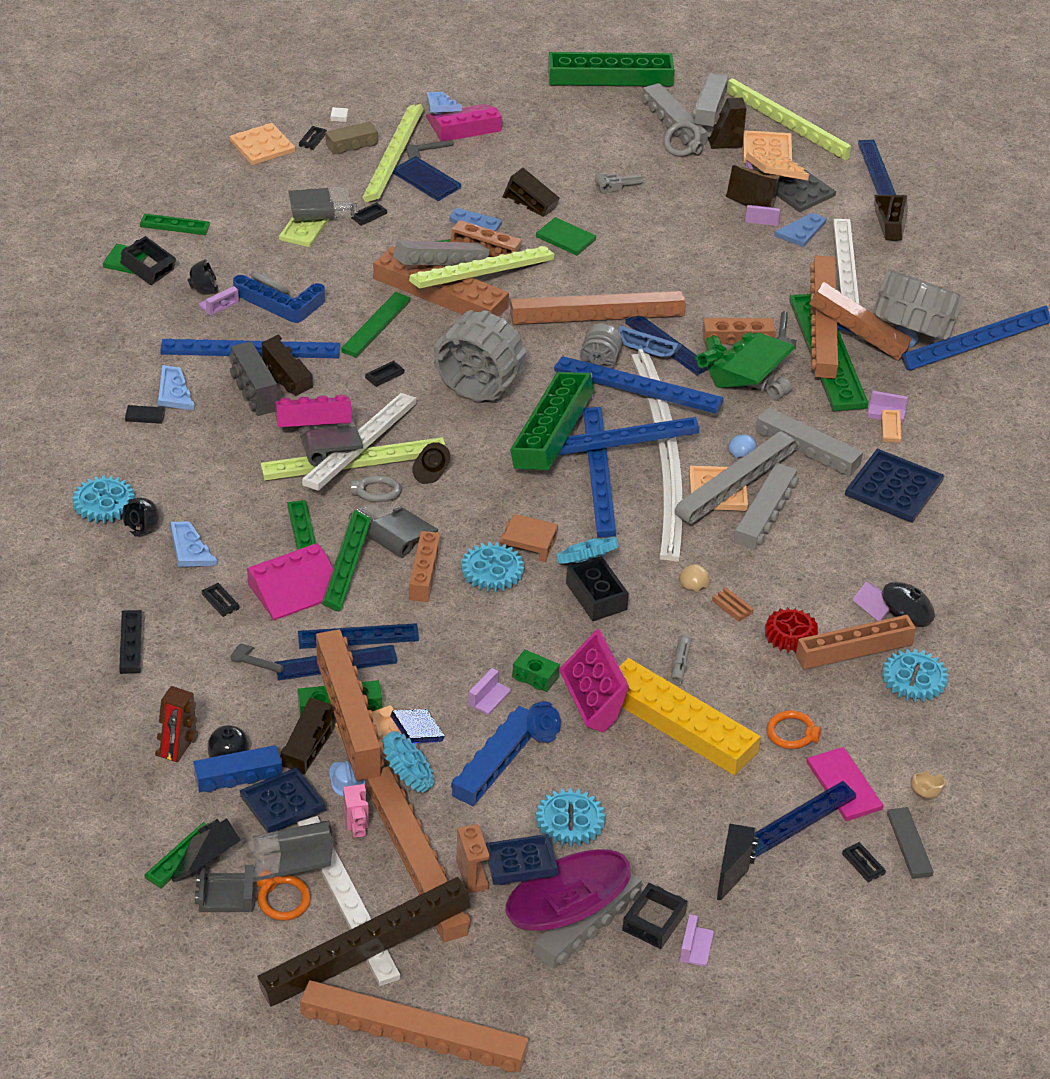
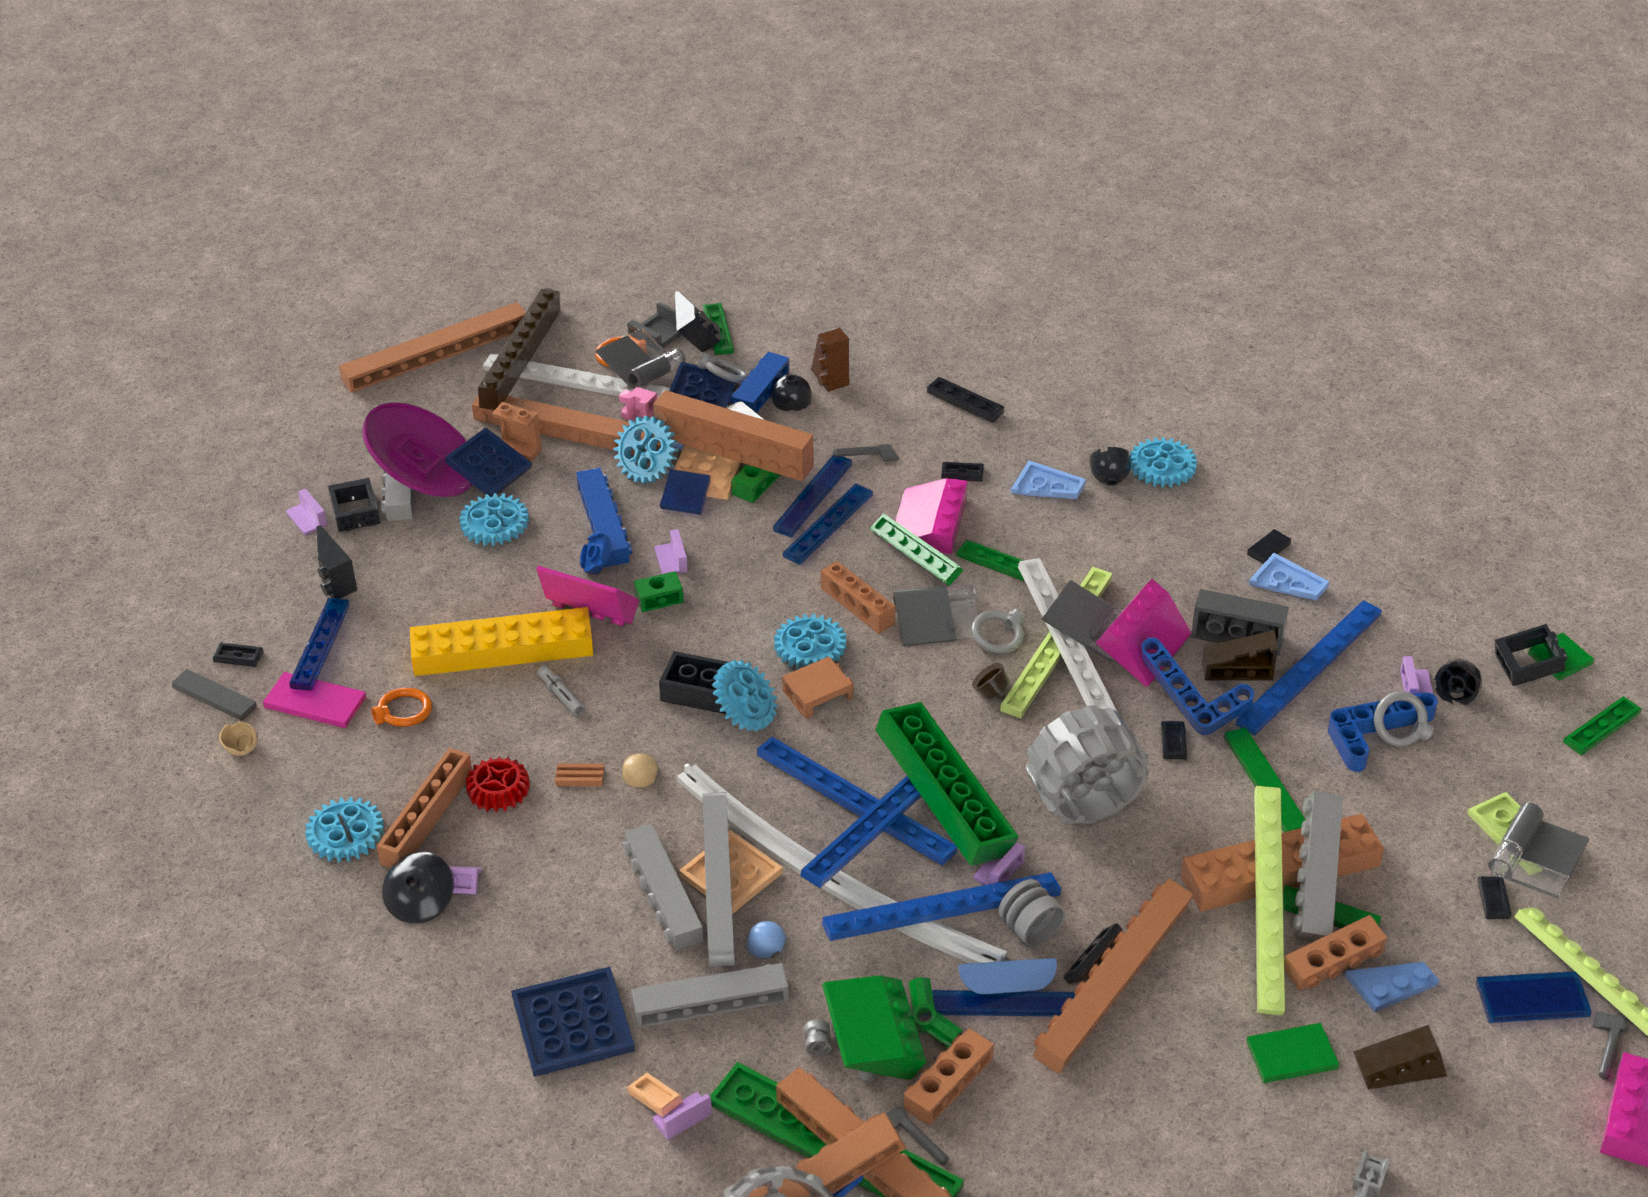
camera: 135 degrees right, 0 degrees up
(261, 804) = (711, 364): none -> light grey piece
(349, 356) = (1189, 693): none -> blue beam
(583, 322) = (1092, 953): none -> black tile

